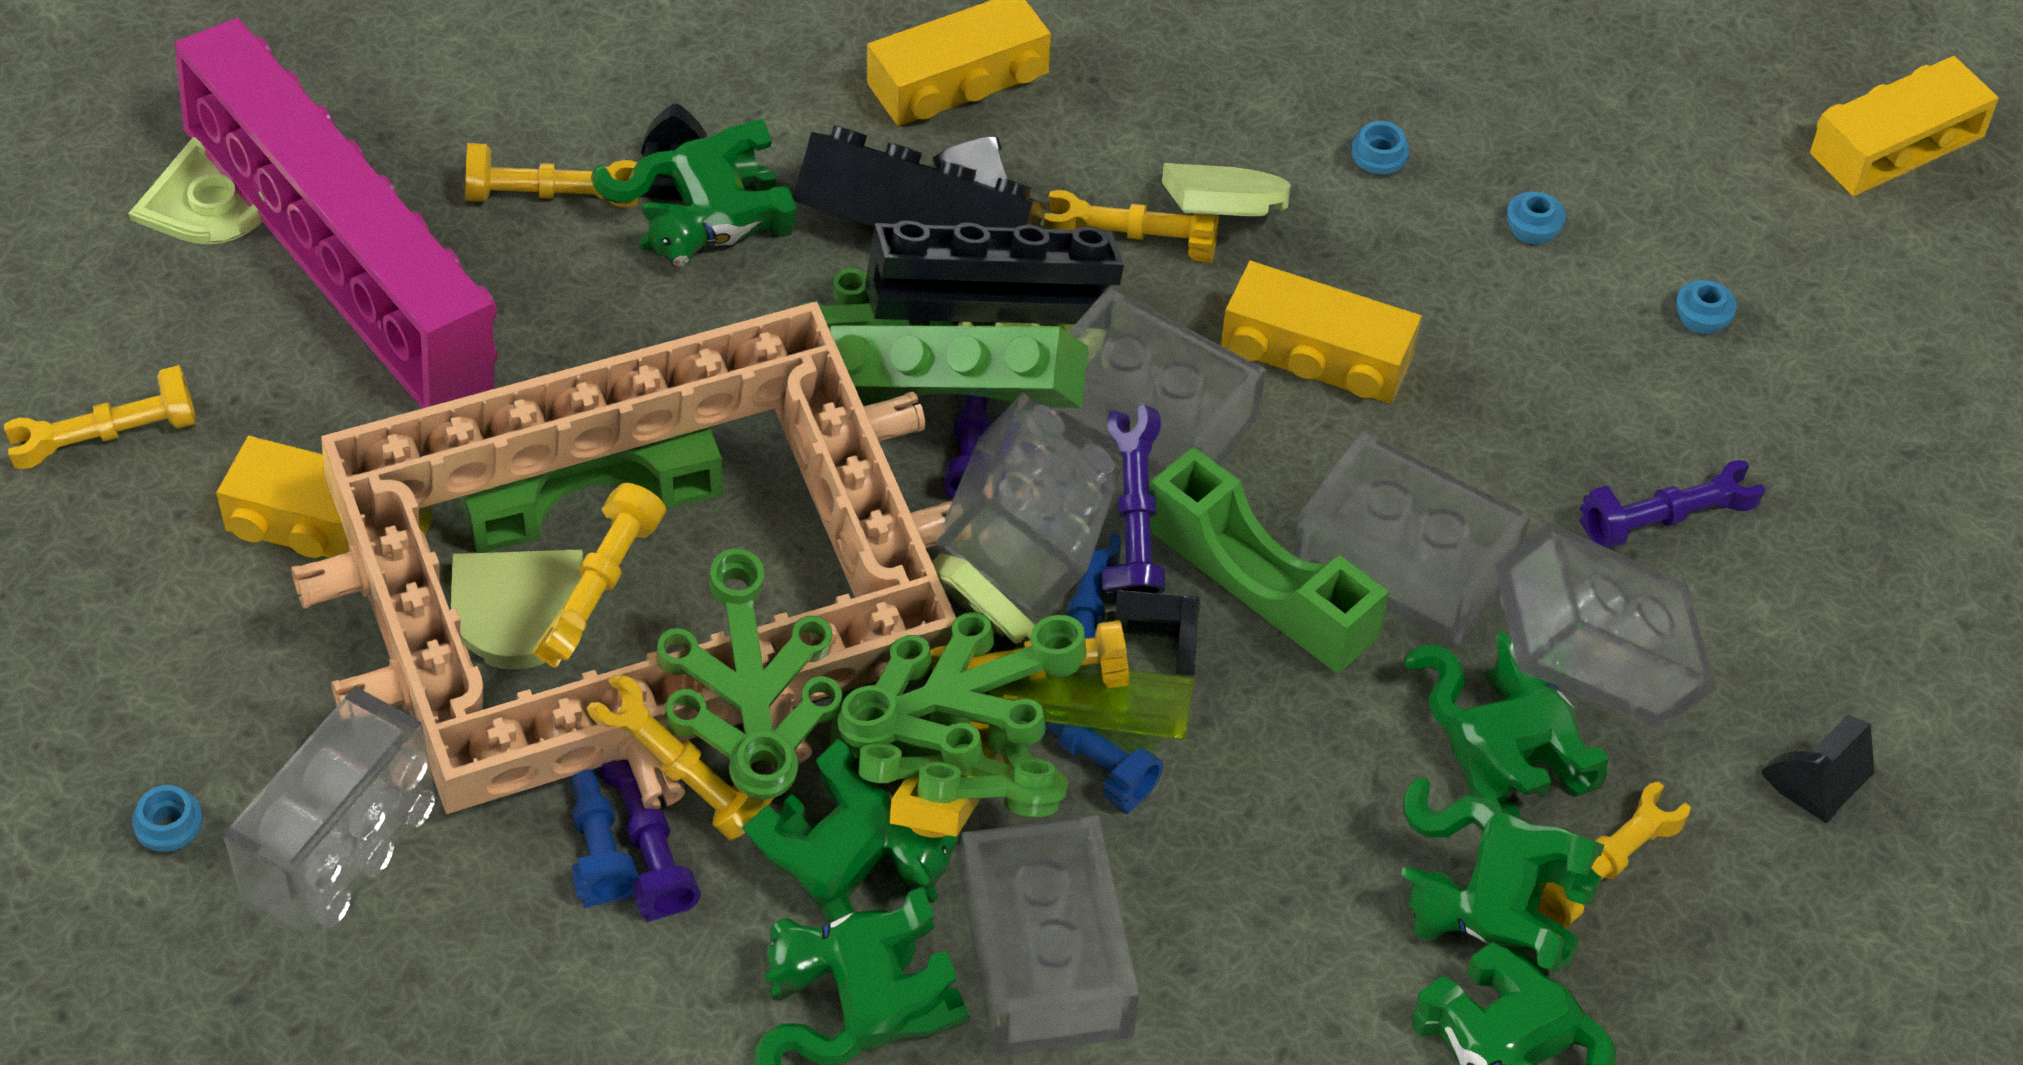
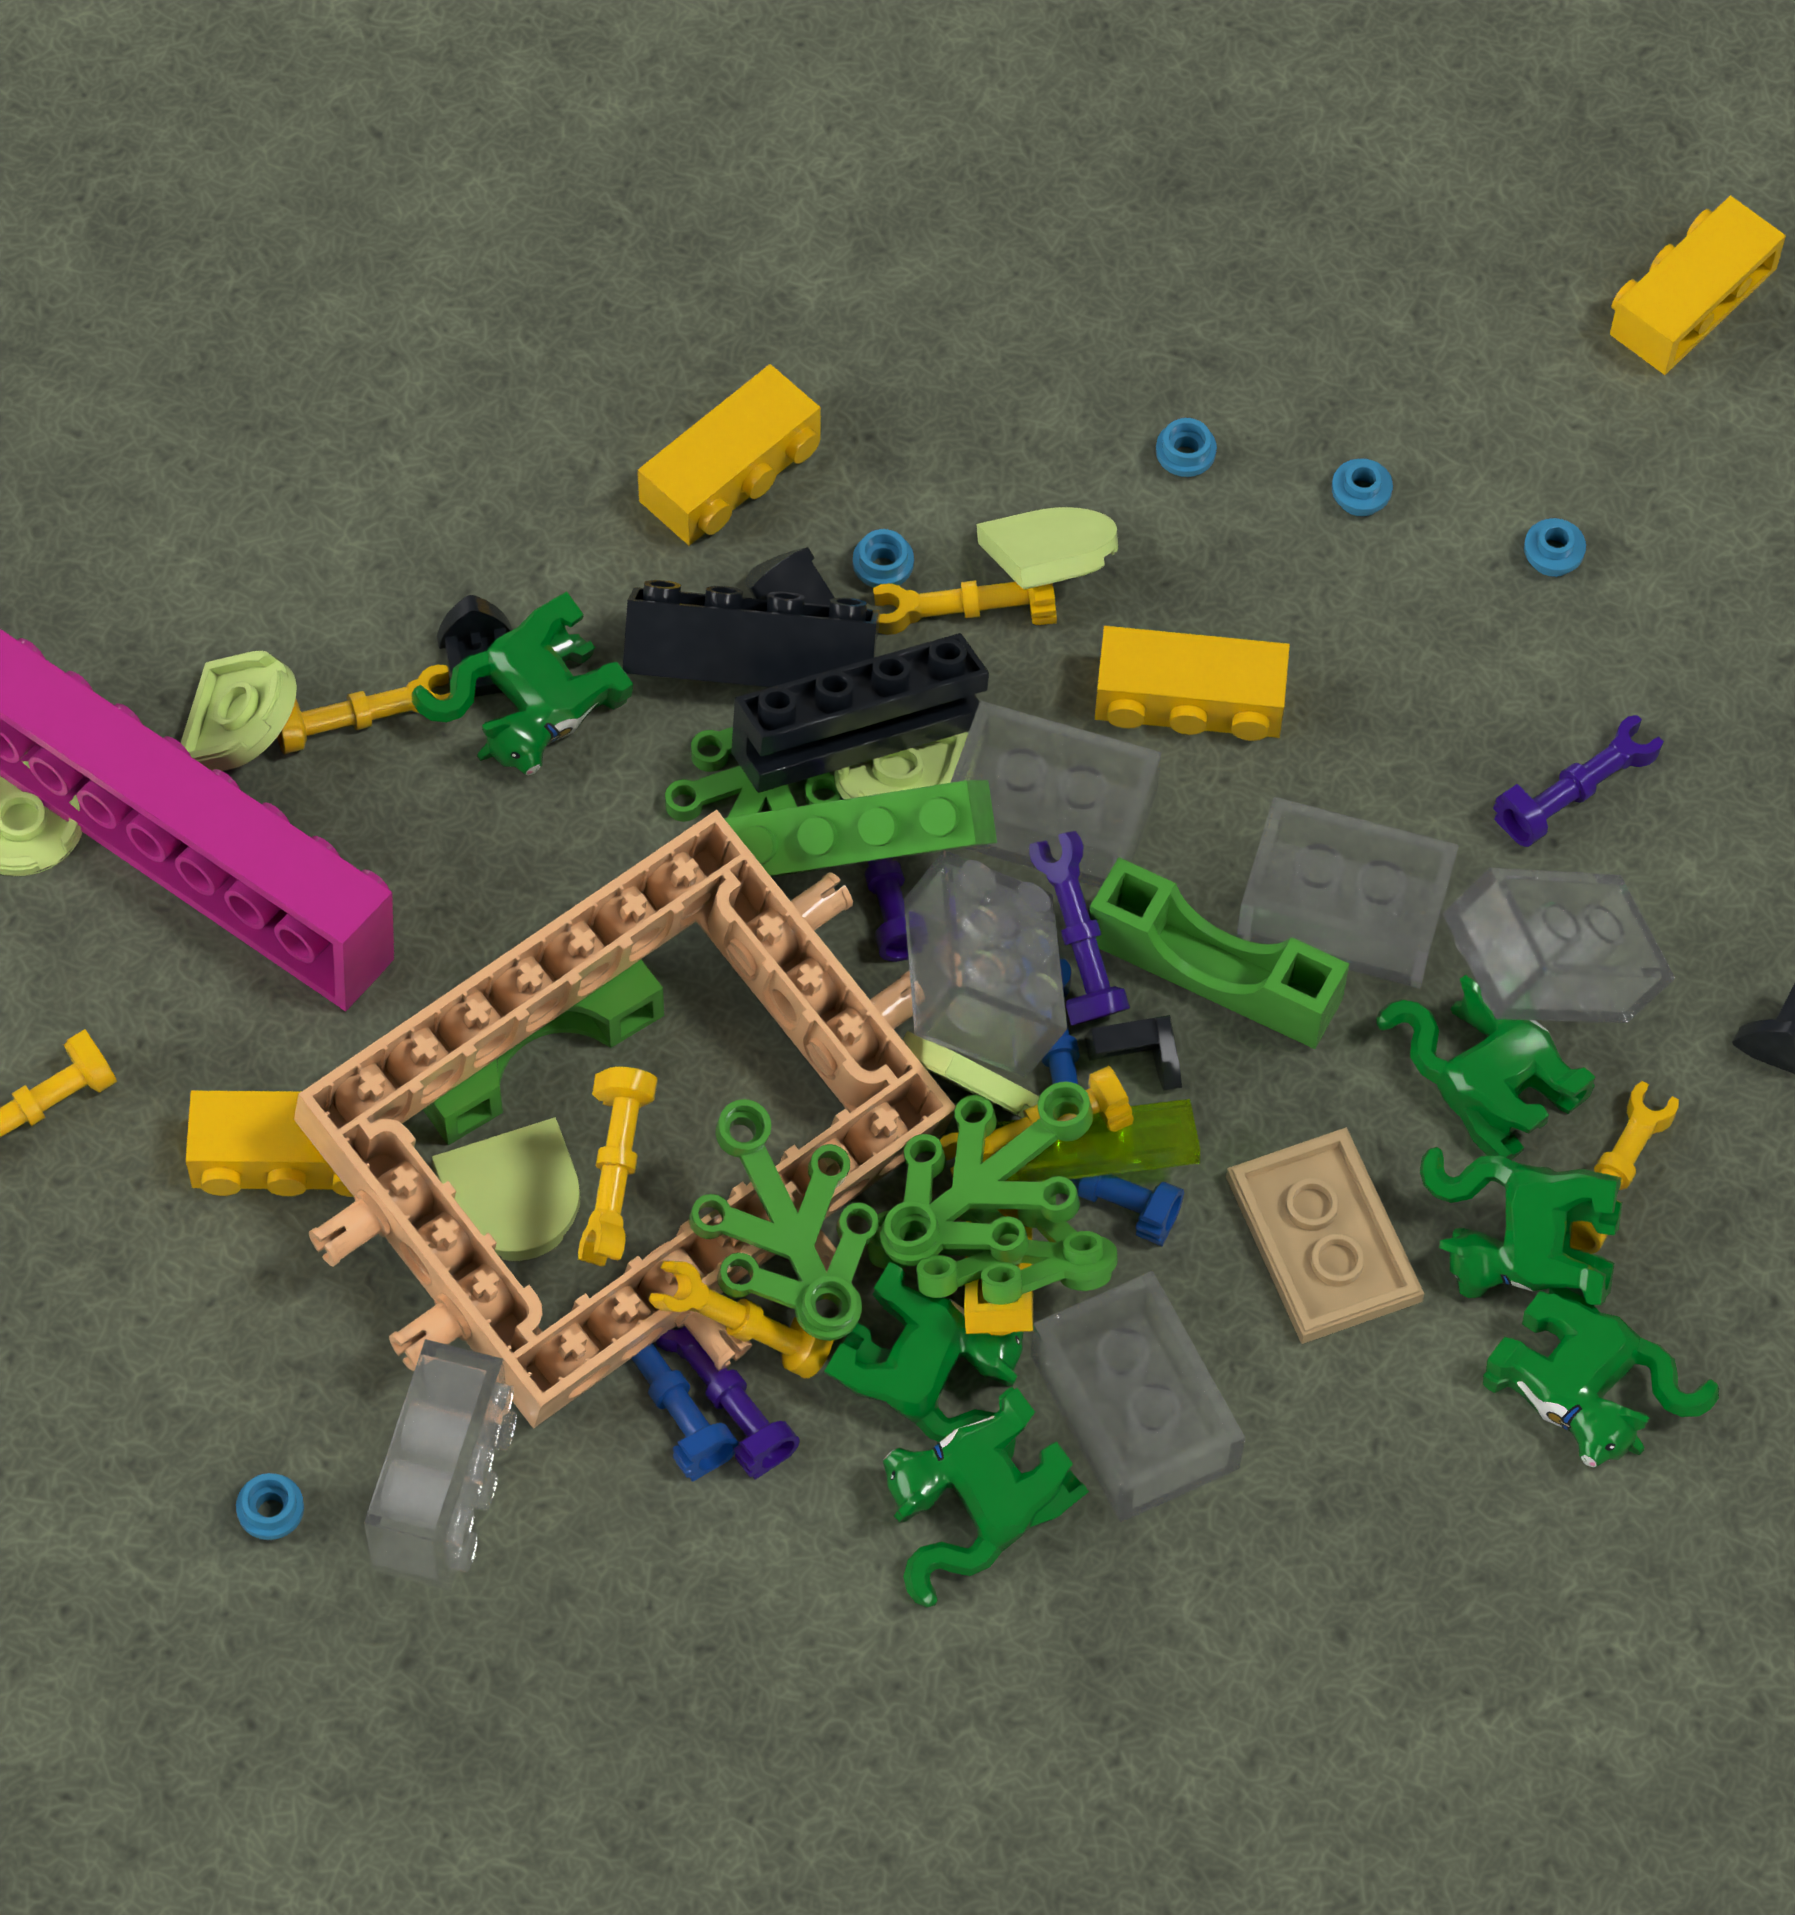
camera: 15 degrees left, 10 degrees up
(436, 148) = (238, 709): none -> yellowish green tile
(1069, 169) = (883, 544): none -> dark azure plate
(1293, 844) = (1324, 1235): none -> tan tile

